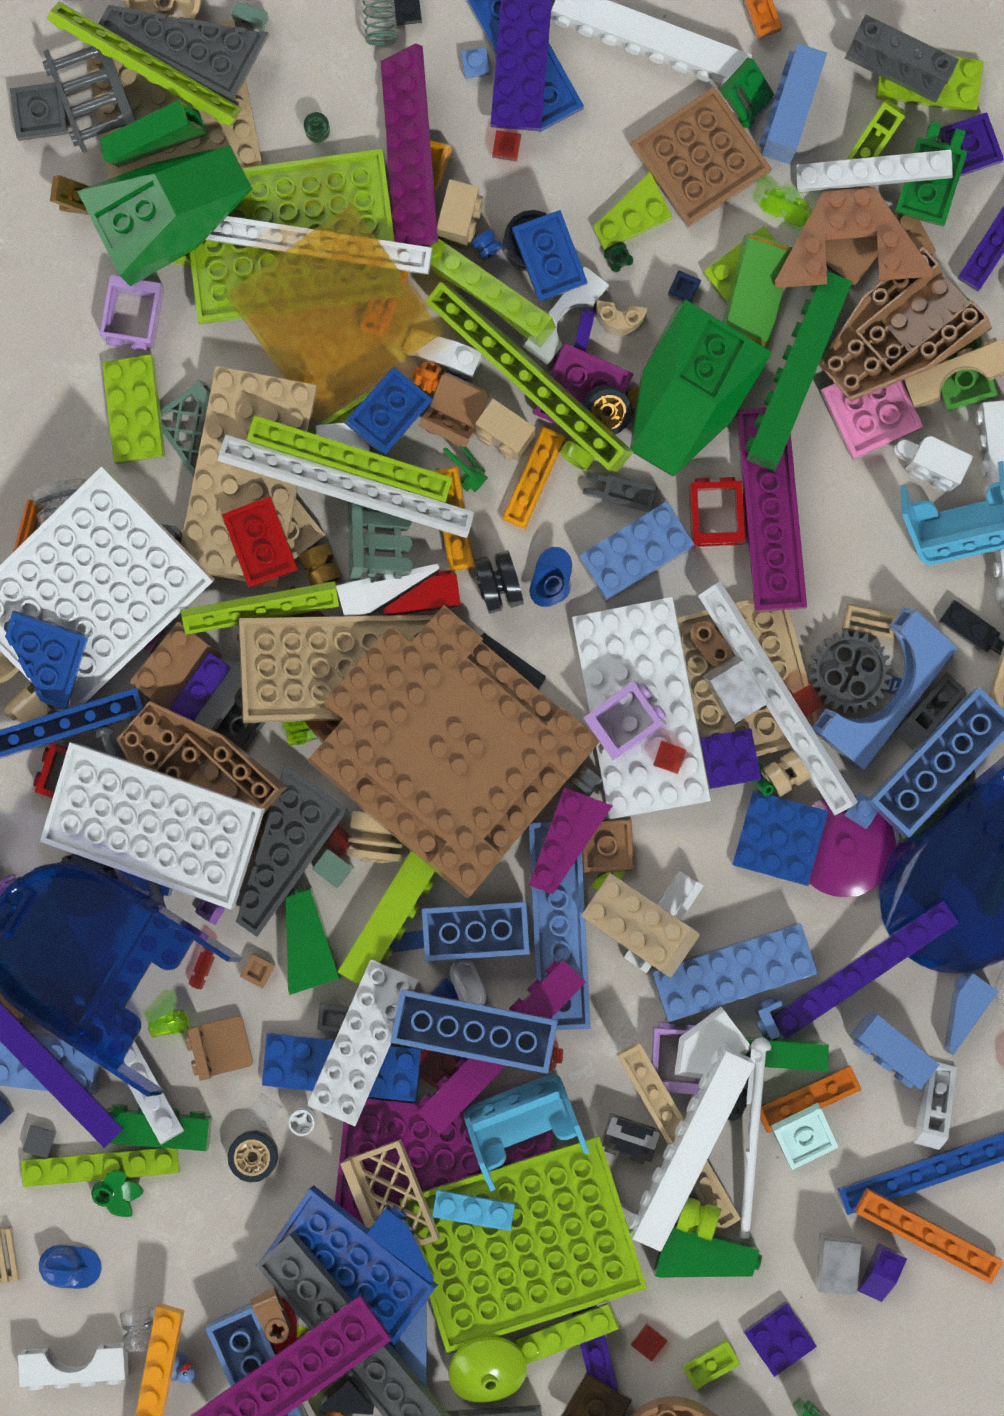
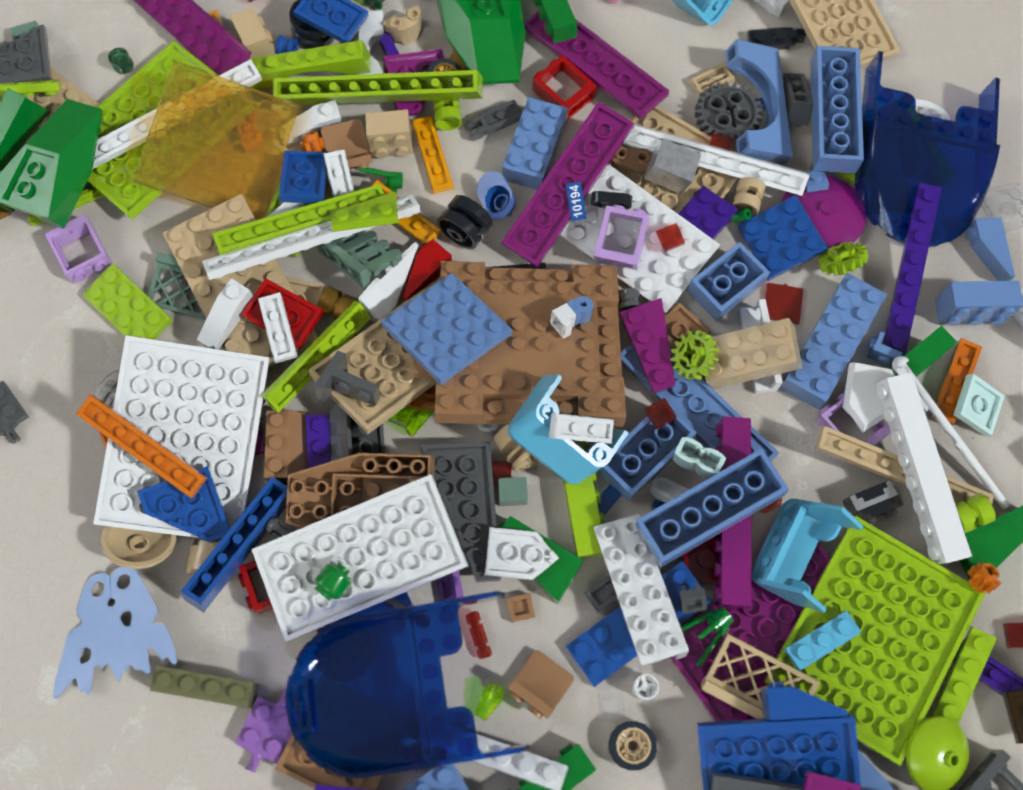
camera: 35 degrees left, 15 degrees down
(43, 578) = (141, 446): none -> orange plate
(112, 829) = (332, 581): none -> green head
(208, 502) = (224, 314): none -> white slope
(243, 555) = (277, 327): none -> white tile
(257, 662) = (336, 377): none -> dark grey bracket
(286, 928) = (517, 554): none -> white tile
(387, 683) = (446, 328): none -> medium blue plate
(390, 836) = (563, 457): none -> medium azure windscreen
(395, 1089) = (693, 600): none -> dark grey tile
(405, 1122) = (718, 621): none -> green plant
(412, 506) = (370, 213): none -> lime wing
(418, 877) = (581, 428): none -> white tile
(422, 437) = (338, 172): none -> white tile
(507, 761) = (571, 314): none -> leg
(507, 988) = (694, 456): none -> light aqua brick
(511, 912) = (660, 413): none -> clear red tile
(589, 885) = (696, 356): none -> lime gear
(613, 650) = (576, 201): none -> blue sticker
(623, 626) = (581, 161): none -> magenta plate
(646, 677) = (603, 198): none -> black beam
(653, 1276) = (984, 577): none -> orange gear
(689, 839) = (728, 281): none -> medium blue brick
(726, 898) = (784, 302): none -> clear red piece
(811, 907) = (843, 258): none -> lime gear

